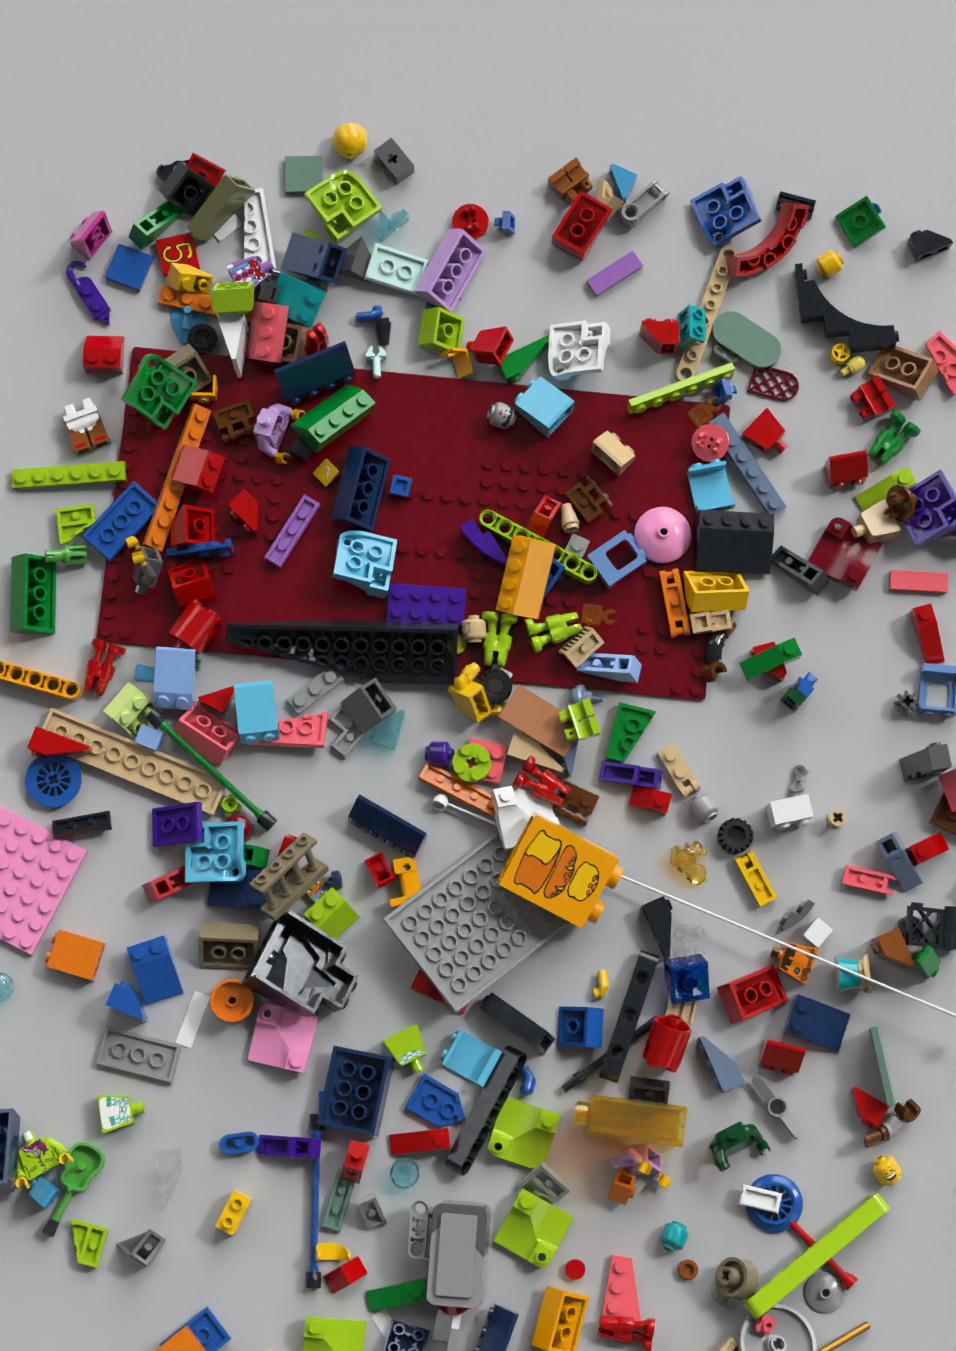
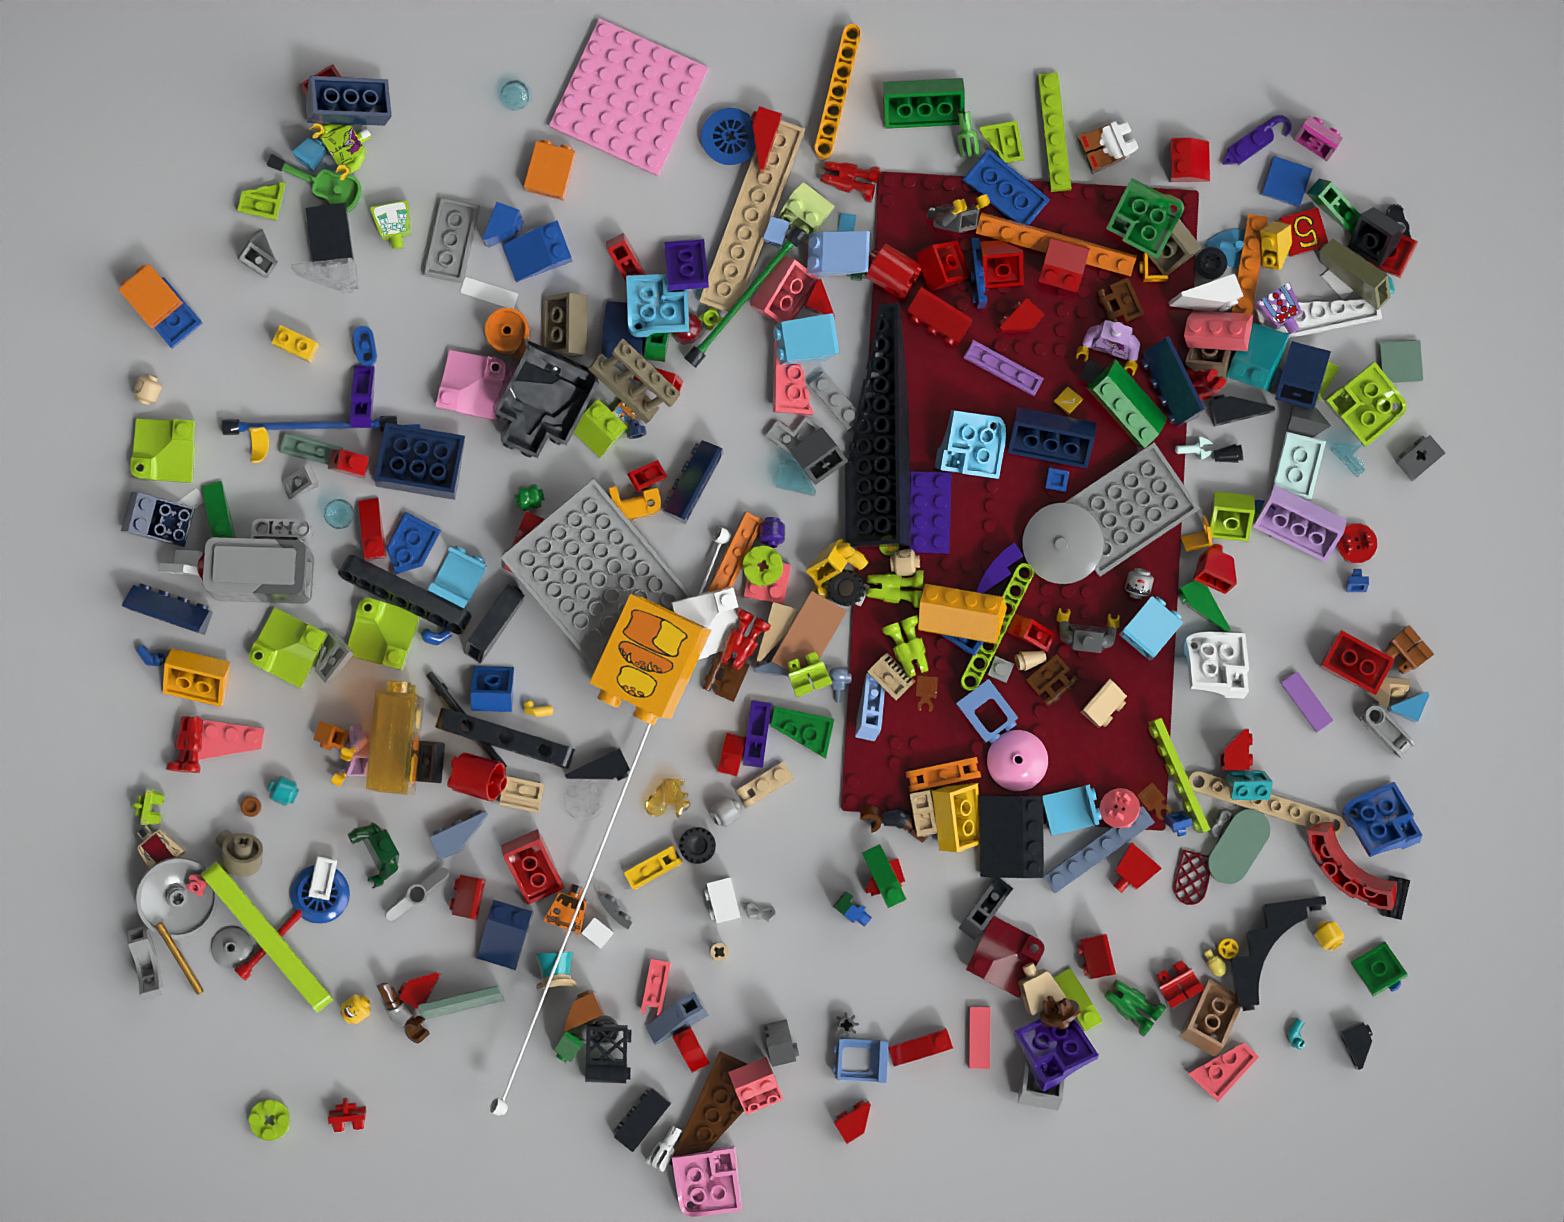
camera: 90 degrees right, 5 degrees up
(82, 825) = (683, 168): black plate -> none
(125, 1175) = (329, 232): none -> black tile
(233, 297) = (1251, 290): lime slope -> none
(241, 586) = (939, 317): none -> red slope
(268, 289) = (1264, 329): black plate -> none
(341, 323) = (1234, 409): none -> black slope
(345, 1274) = (237, 460): red slope -> none
(349, 140) = (1440, 408): yellow piece -> none
(370, 315) = (1245, 440): blue arm -> none
(395, 985) = (529, 497): none -> green piece
(407, 1047) = (466, 512): lime torso -> none
(431, 424) = (1135, 505): none -> light grey plate
(461, 482) = (1063, 543): none -> light grey dish
(551, 464) = (1087, 637): none -> dark grey torso
(575, 1269) = (248, 691): red tile -> none
(687, 978) = (544, 796): clear blue slope -> none
(920, 299) = (1295, 1036): none -> teal arm

